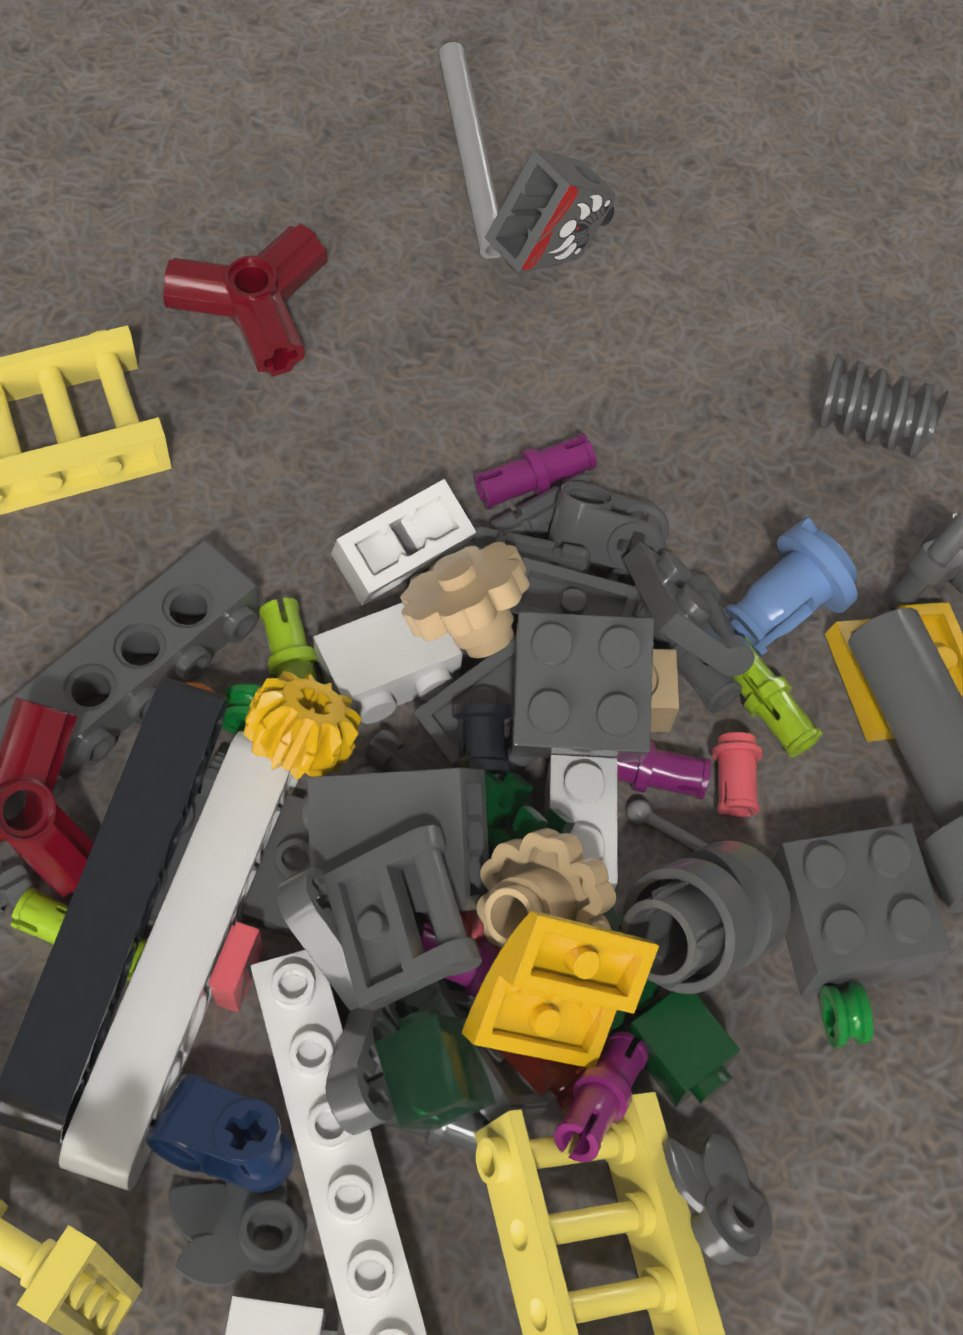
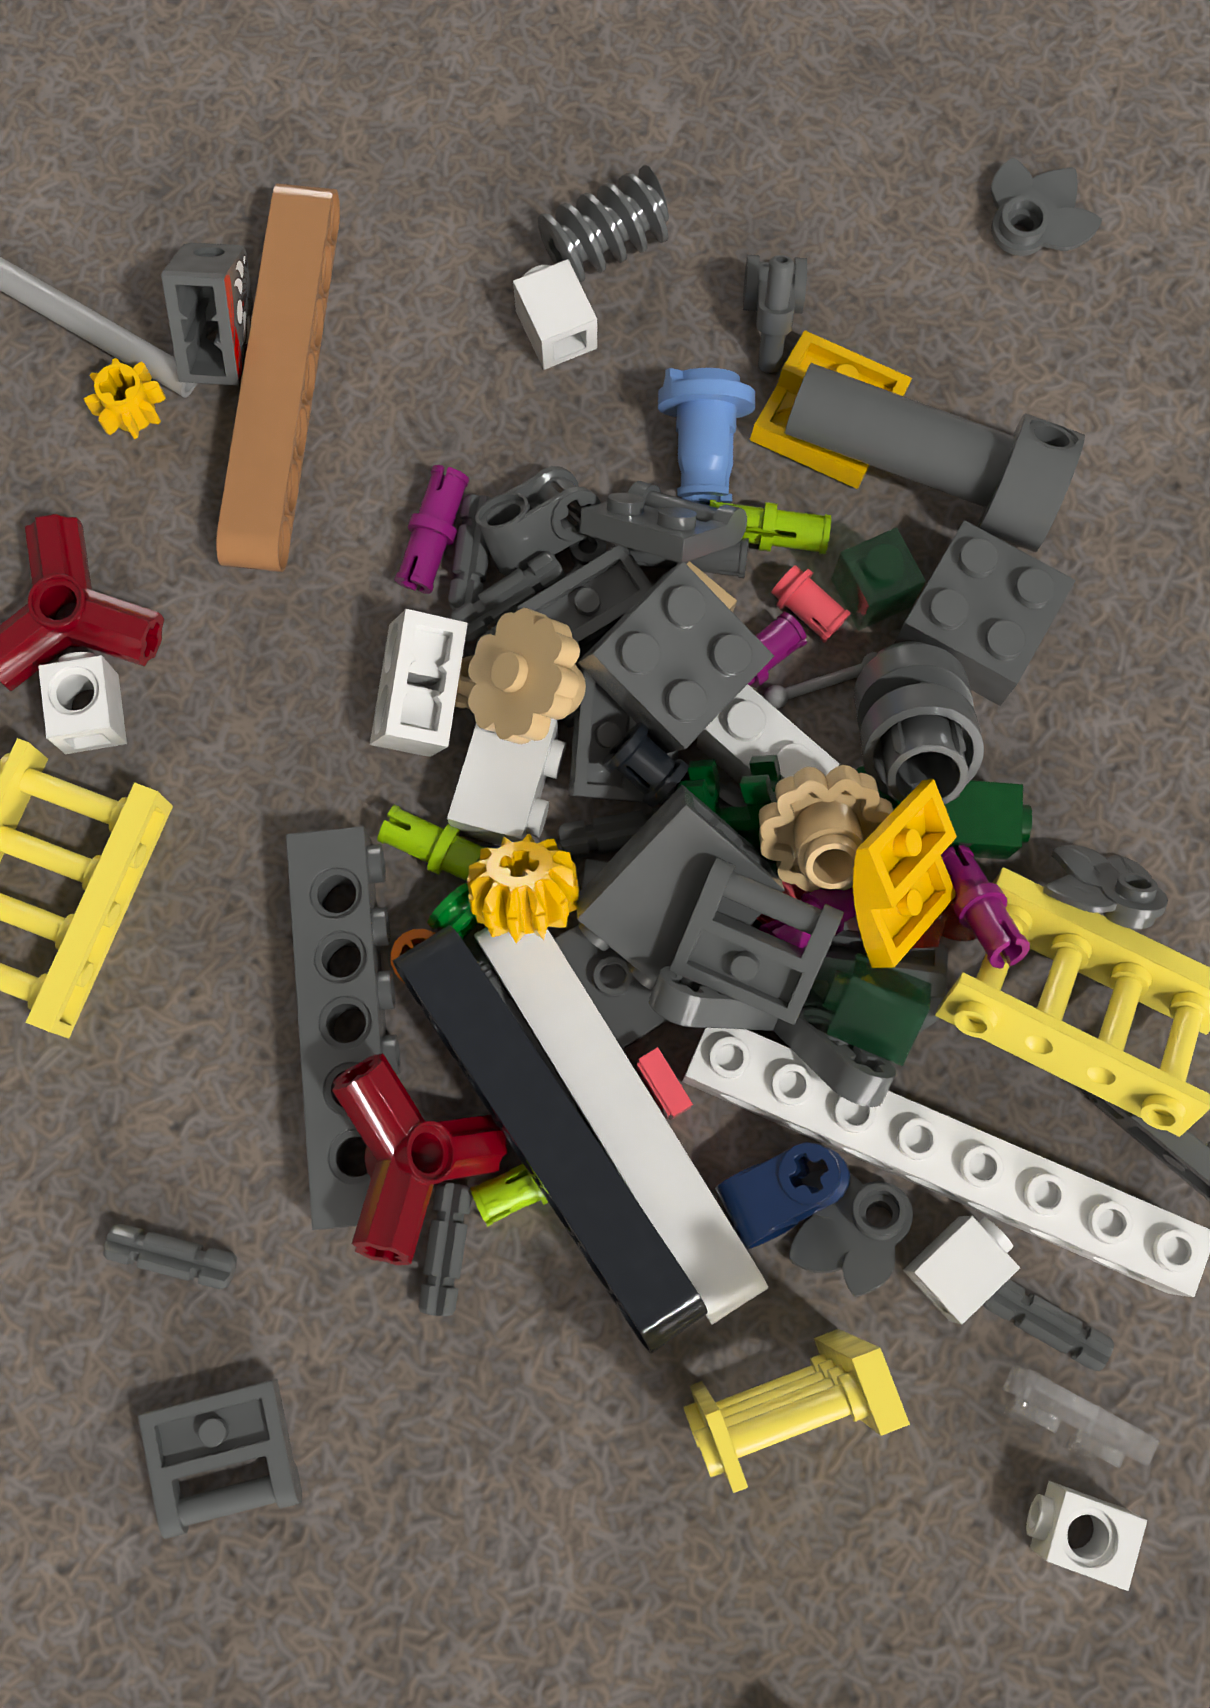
camera: 45 degrees left, 15 degrees up
(193, 352) = (100, 721): none -> white brick
(441, 217) = (111, 388): none -> yellow gear
(547, 296) = (278, 379): none -> medium nougat beam
(778, 425) = (555, 313): none -> white brick
(803, 800) = (877, 578): none -> clear green brick
(846, 1014) = (1046, 688): green bush -> none

